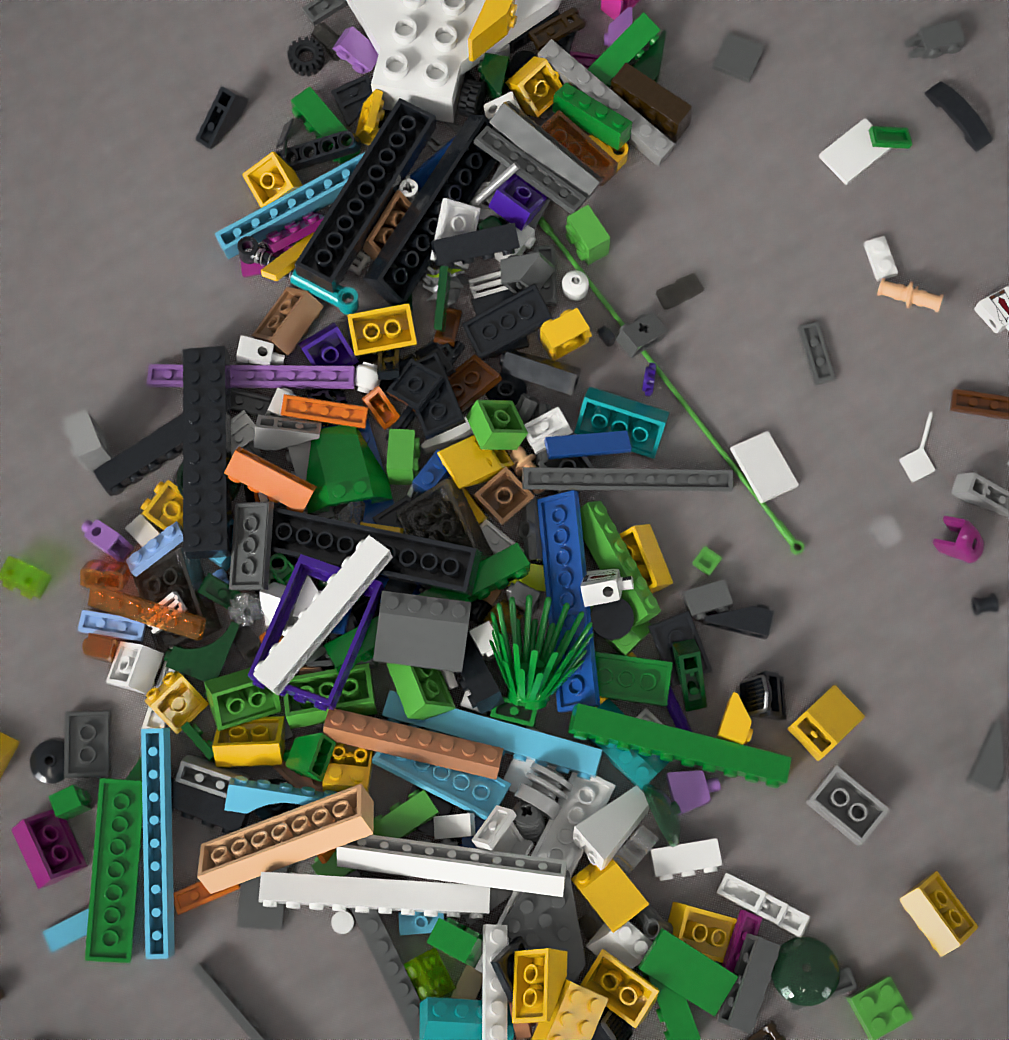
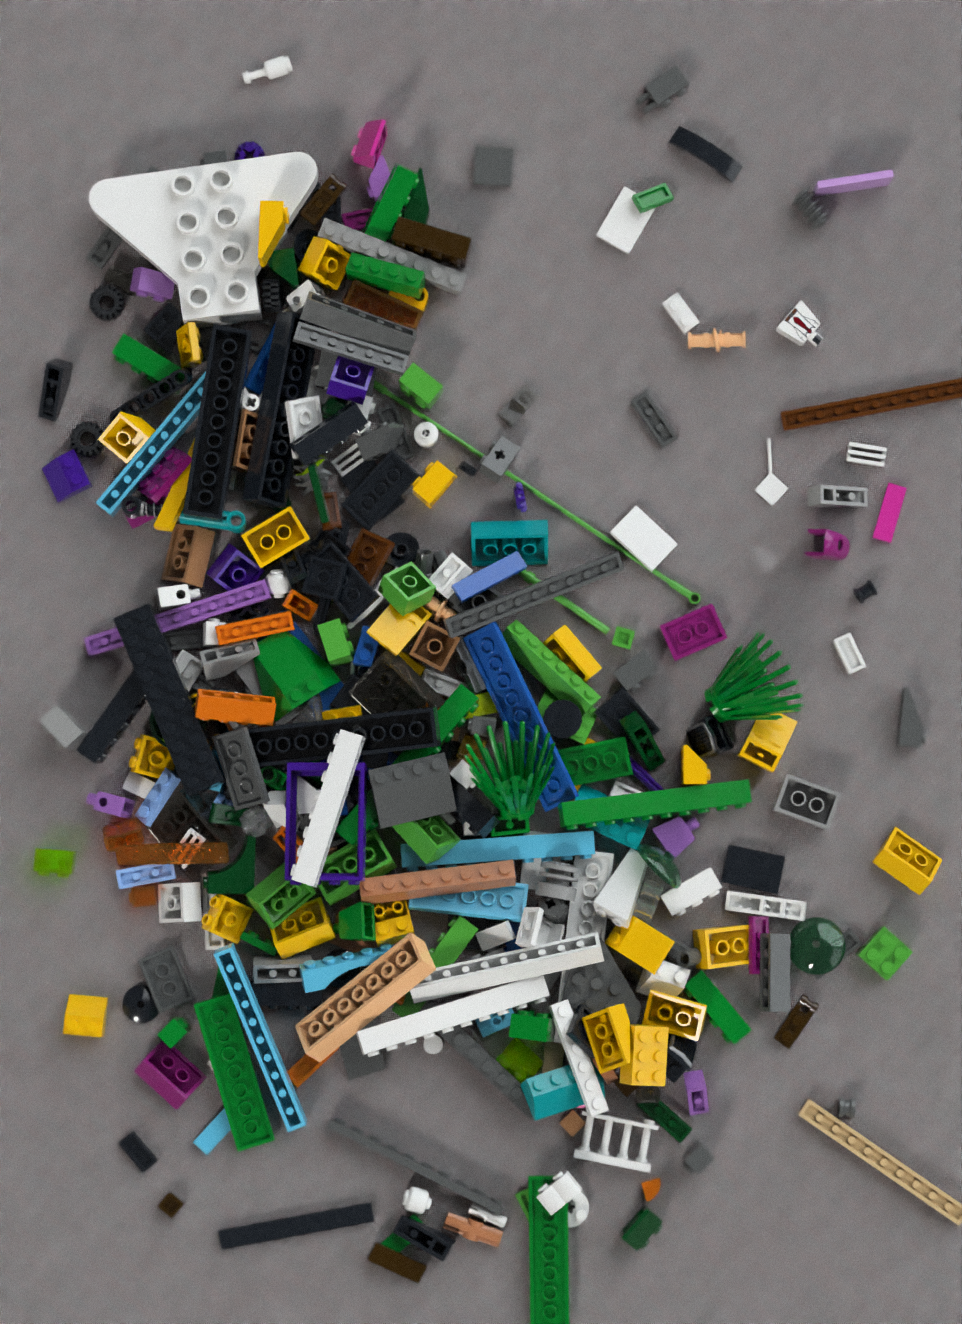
camera: 25 degrees left, 10 degrees up
(199, 203) = (66, 476): none -> dark purple slope
(225, 168) = (76, 439): none -> black tyre
(283, 137) = (117, 388): black piece -> none
(495, 184) = (325, 371): light grey bar -> none
(540, 371) = (425, 523): black slope -> none
(604, 586) = (547, 696): white torso -> none
(629, 463) = (529, 577): none -> bright green bar
(688, 972) = (724, 982): green tile -> none
(749, 621) = (676, 676): black slope -> none
(762, 859) = (753, 869): none -> black tile
(784, 581) = (693, 632): none -> magenta plate
(815, 668) = (732, 692): none -> green plant
(945, 664) = (849, 653): none -> white tile

